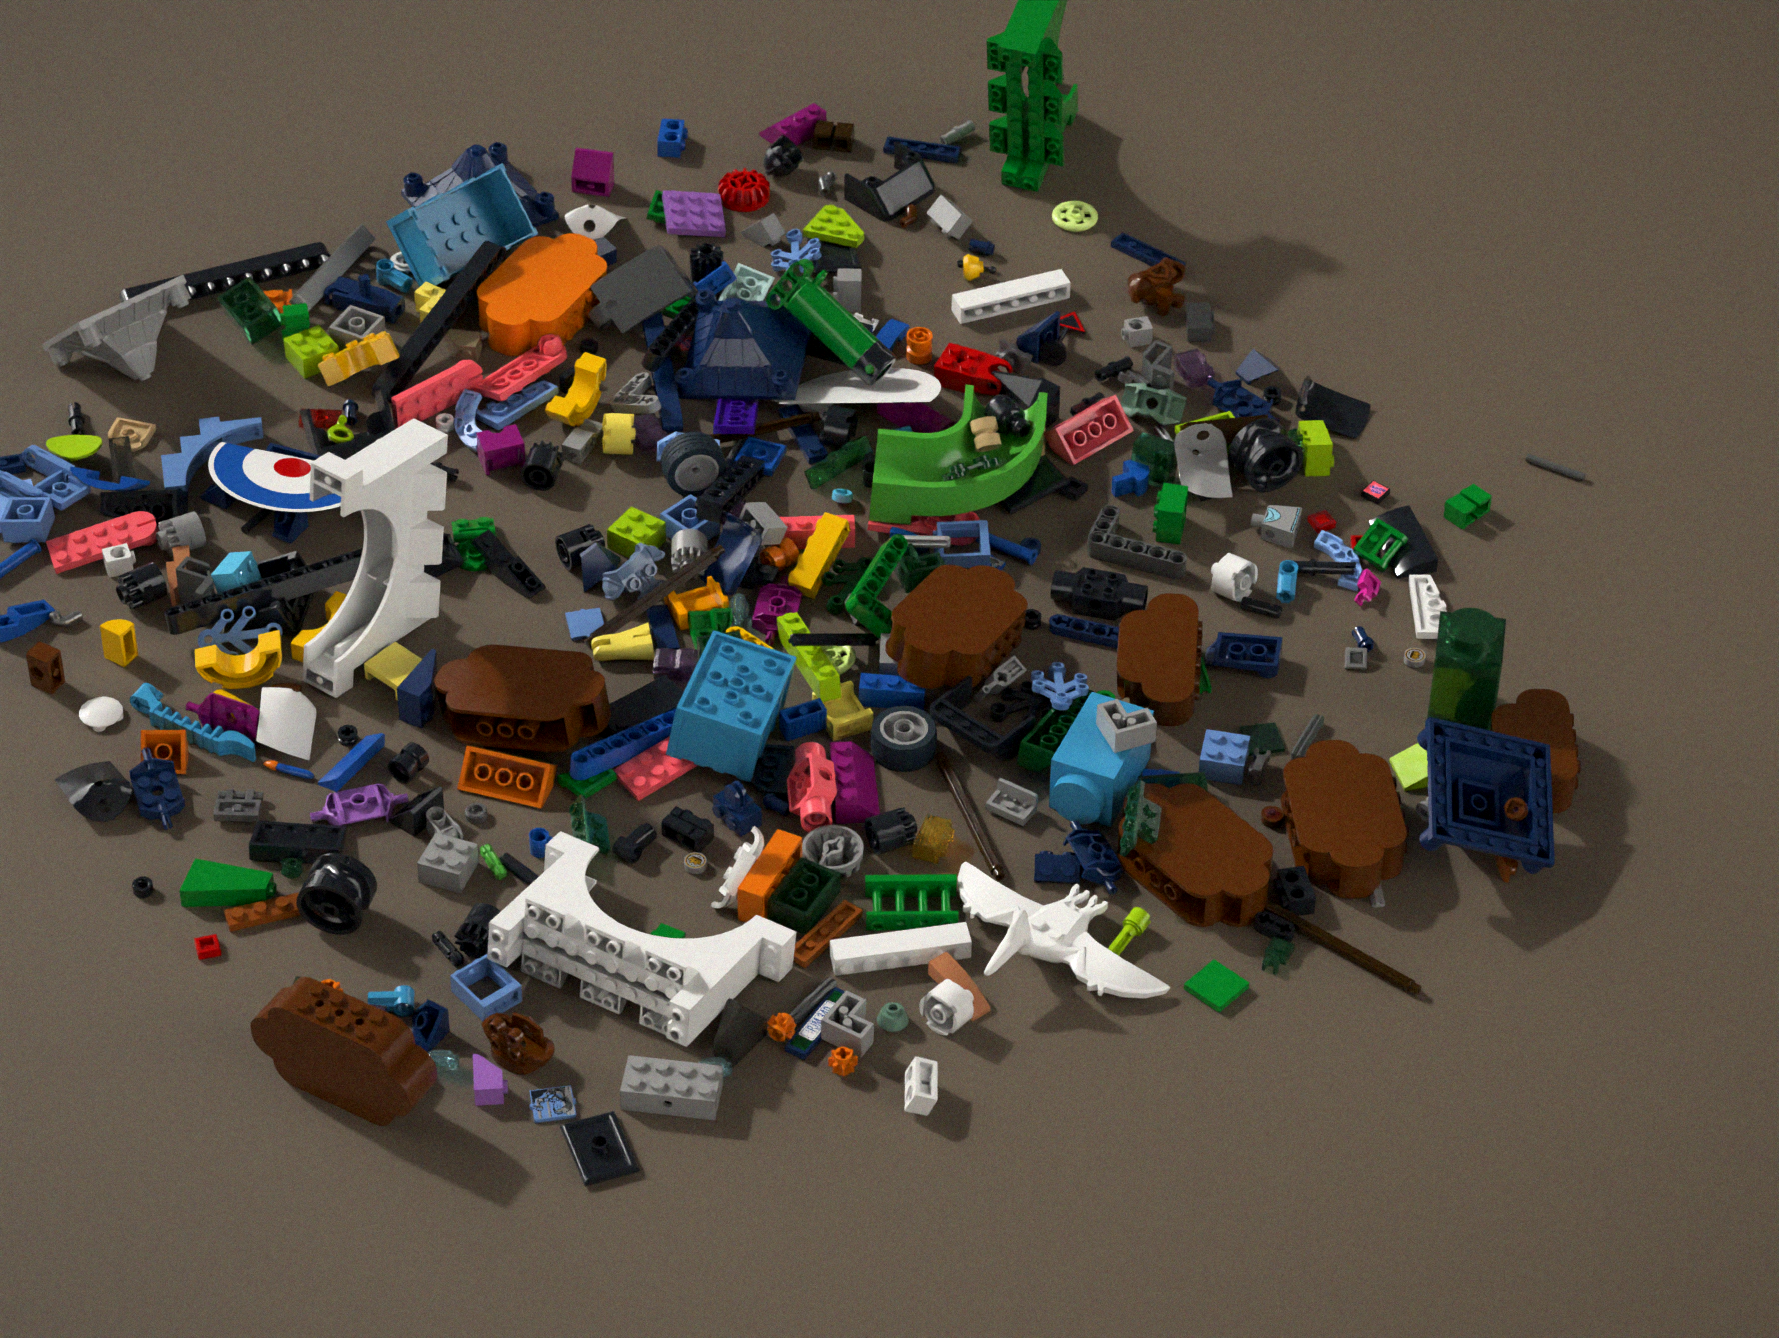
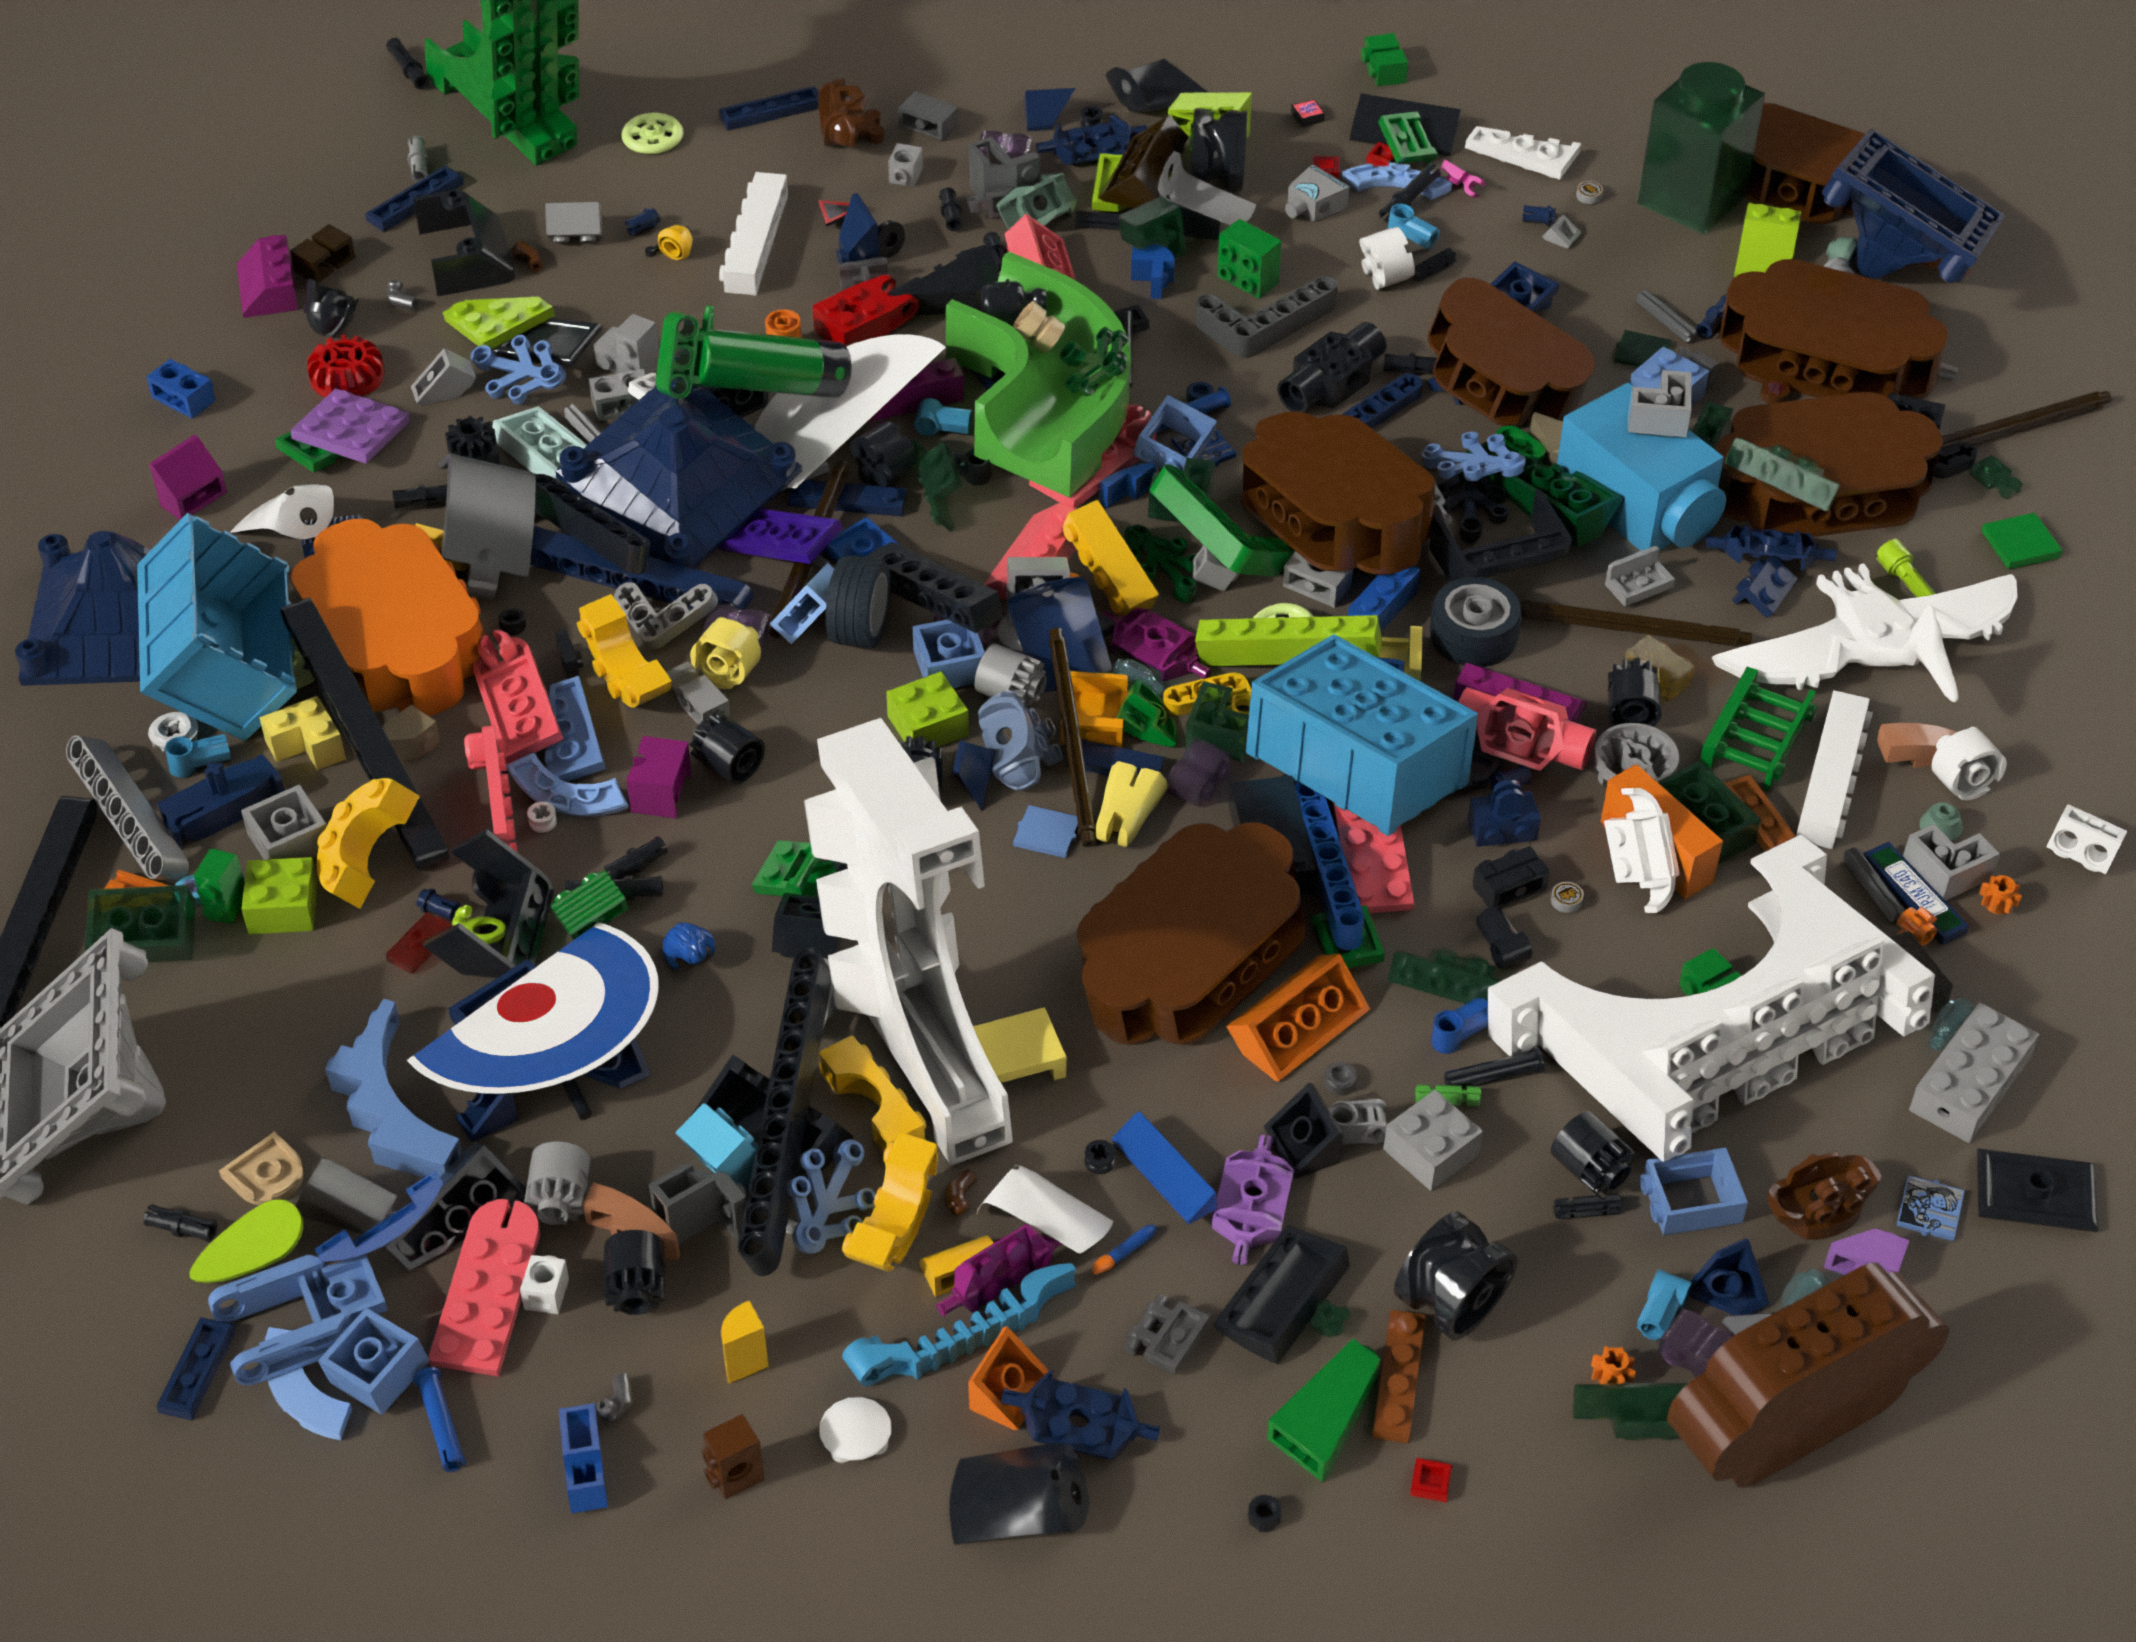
camera: 60 degrees left, 5 degrees up
(408, 763) = (1211, 1108): black wheel -> none
(418, 692) = (1090, 1035): dark blue slope -> none
(717, 279) = (514, 444): blue hinge -> none
(833, 639) = (1289, 602): black axle -> none
(842, 496) = (993, 507): medium azure tile -> none
(928, 541) = (1155, 464): light grey axle -> none
(1516, 809) = (1936, 196): reddish brown tile -> none

